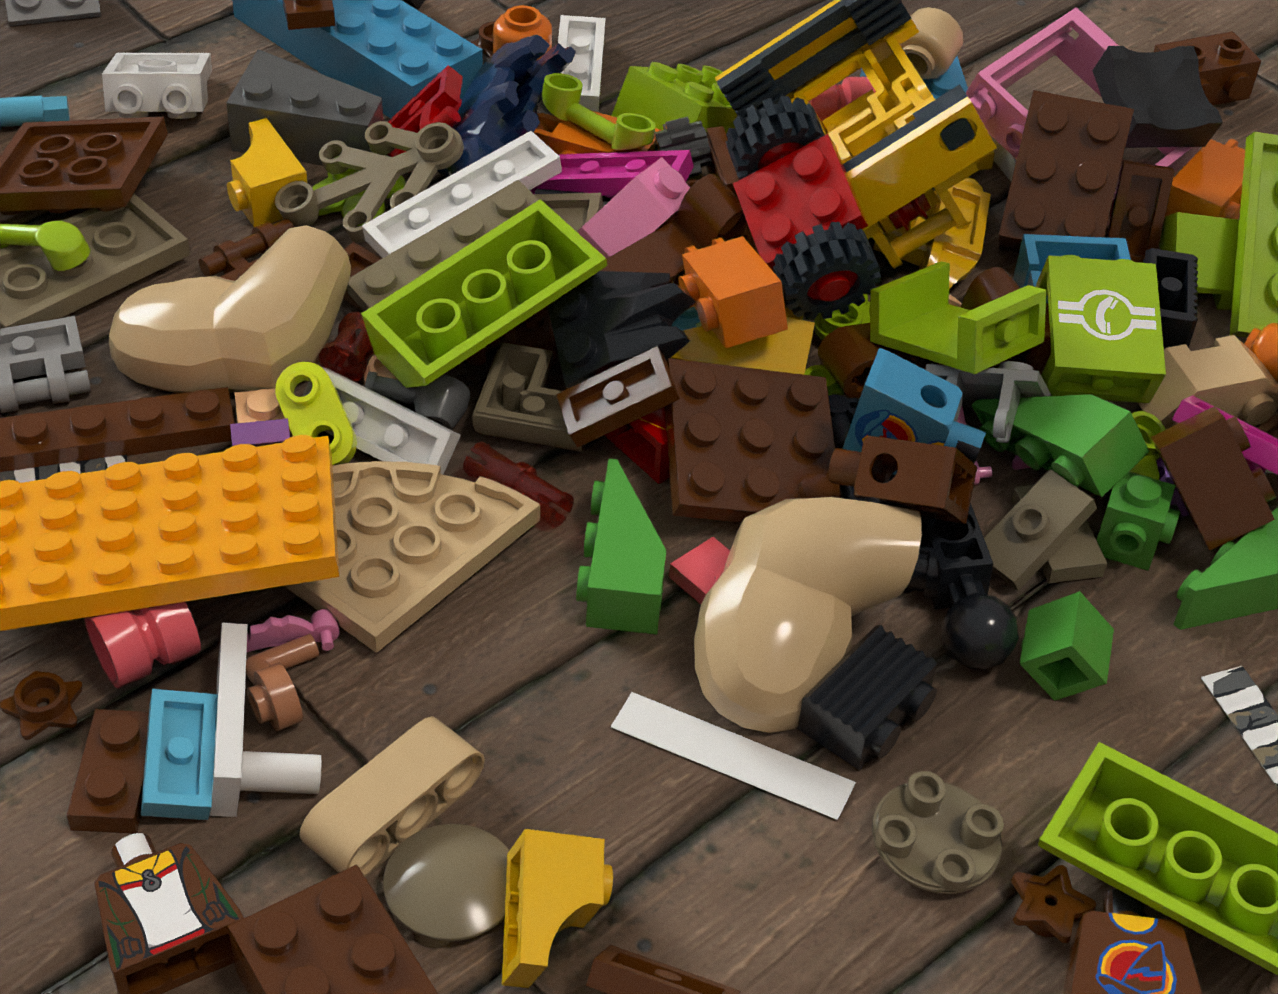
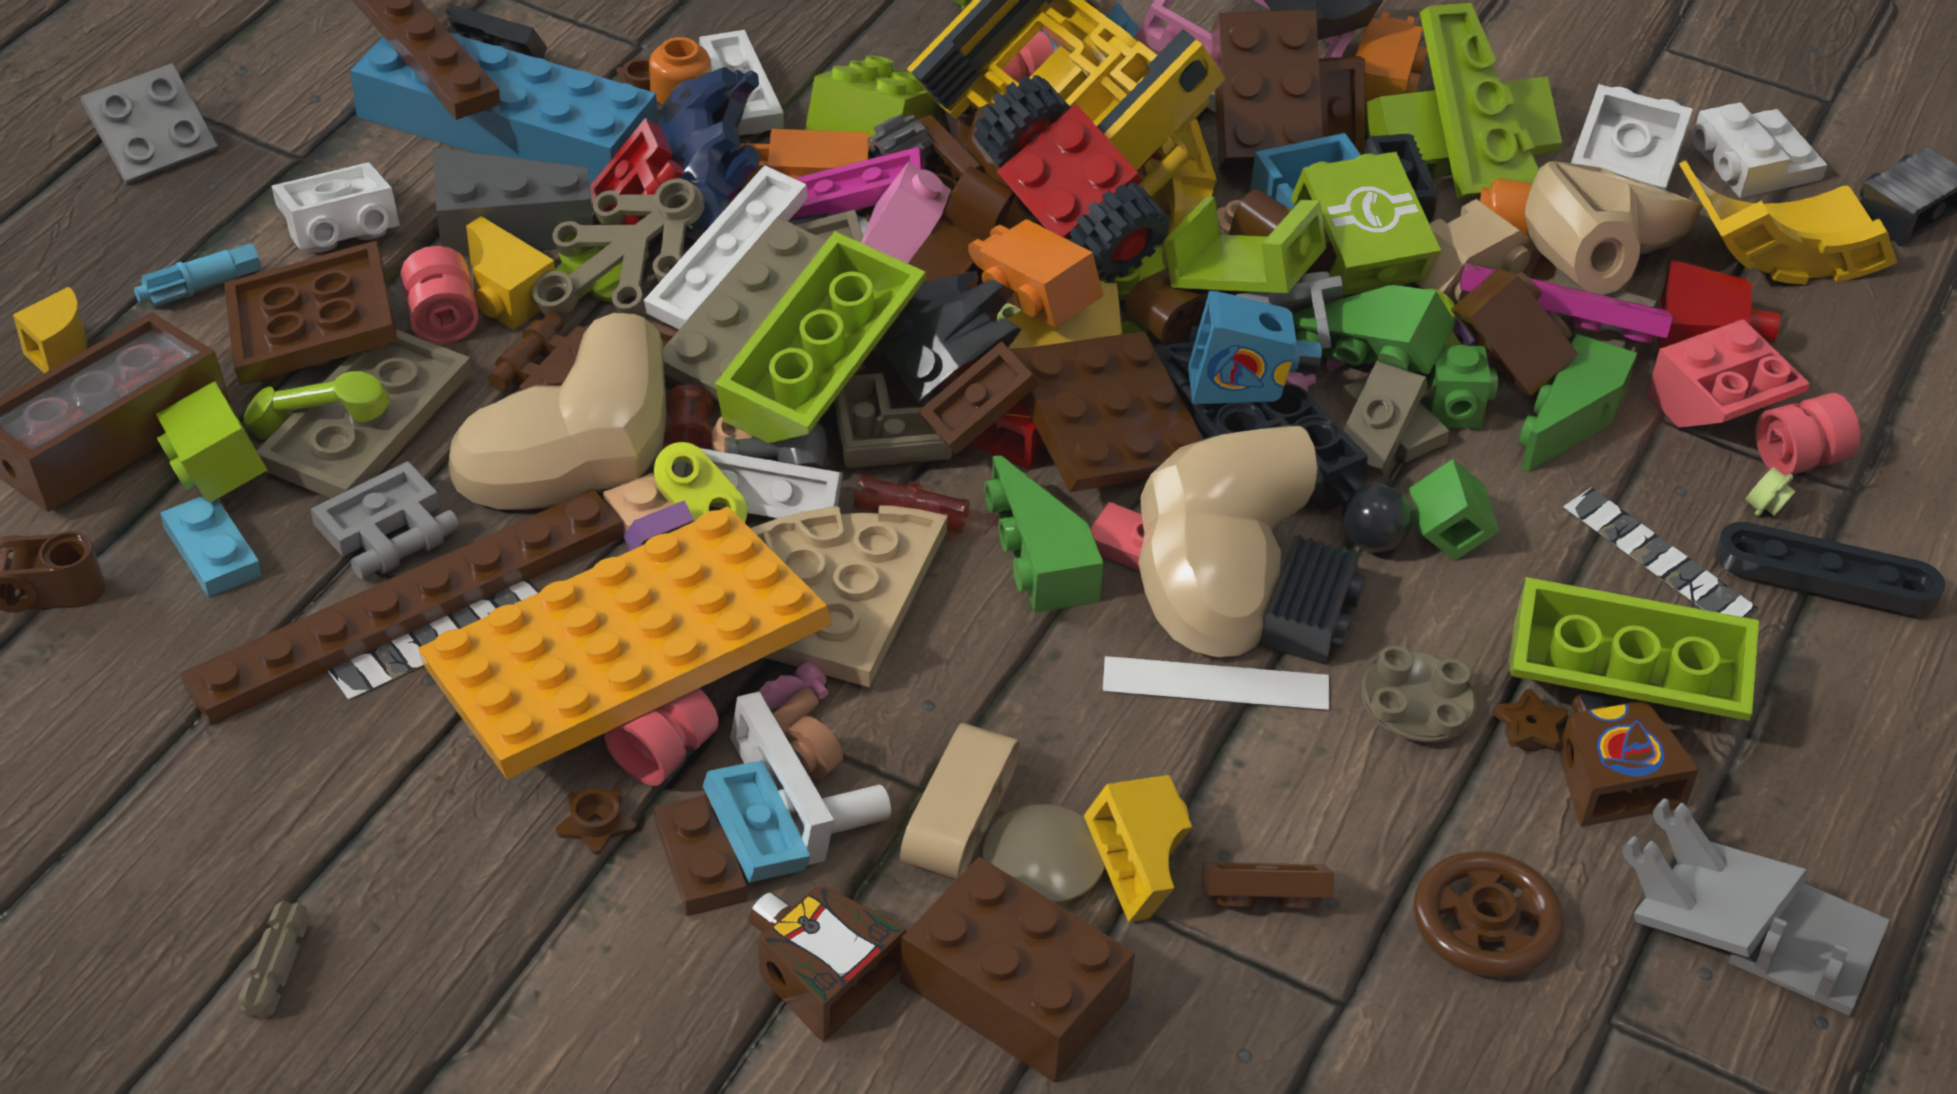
camera: 20 degrees left, 0 degrees up
(194, 178) = (439, 295): none -> coral wheel
(562, 97) = (765, 123): lime bar -> none
(928, 476) = (1296, 391): reddish brown torso -> none

